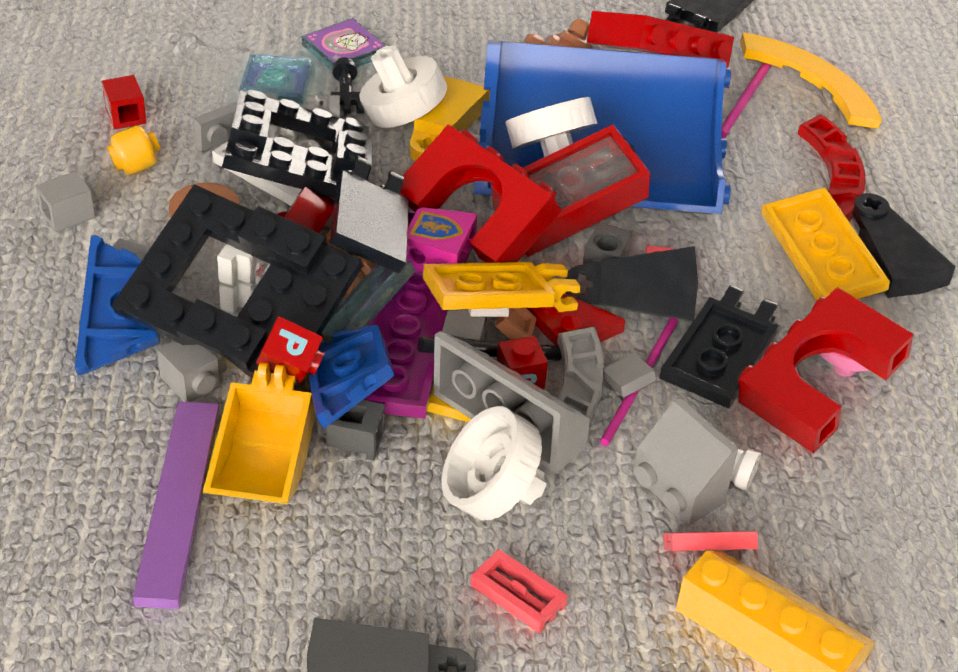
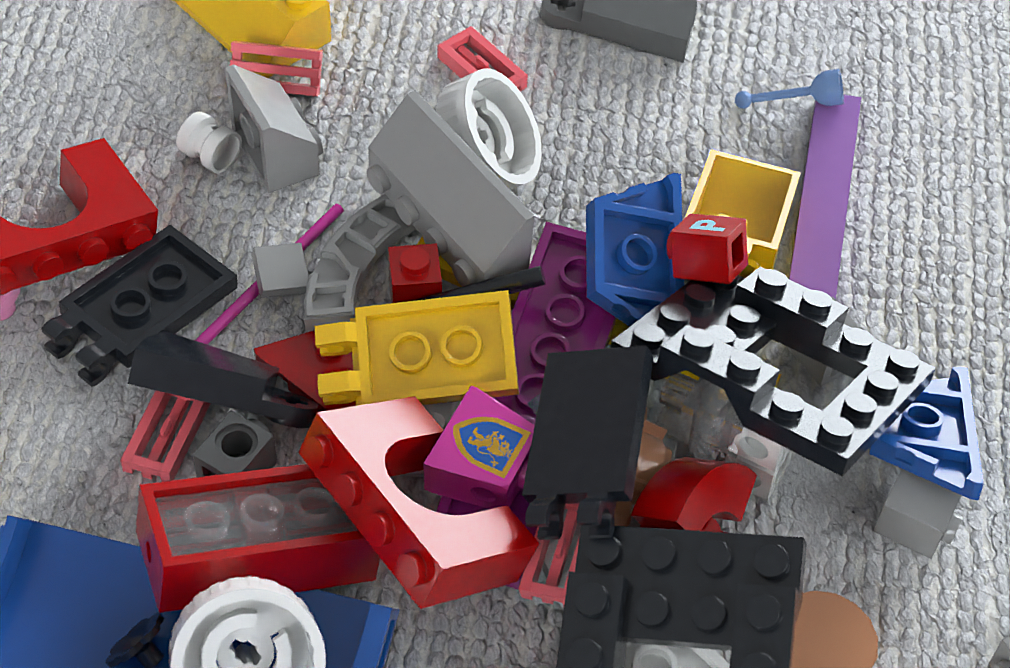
camera: 170 degrees left, 10 degrees up
(172, 577) = (825, 89): none -> medium blue hinge

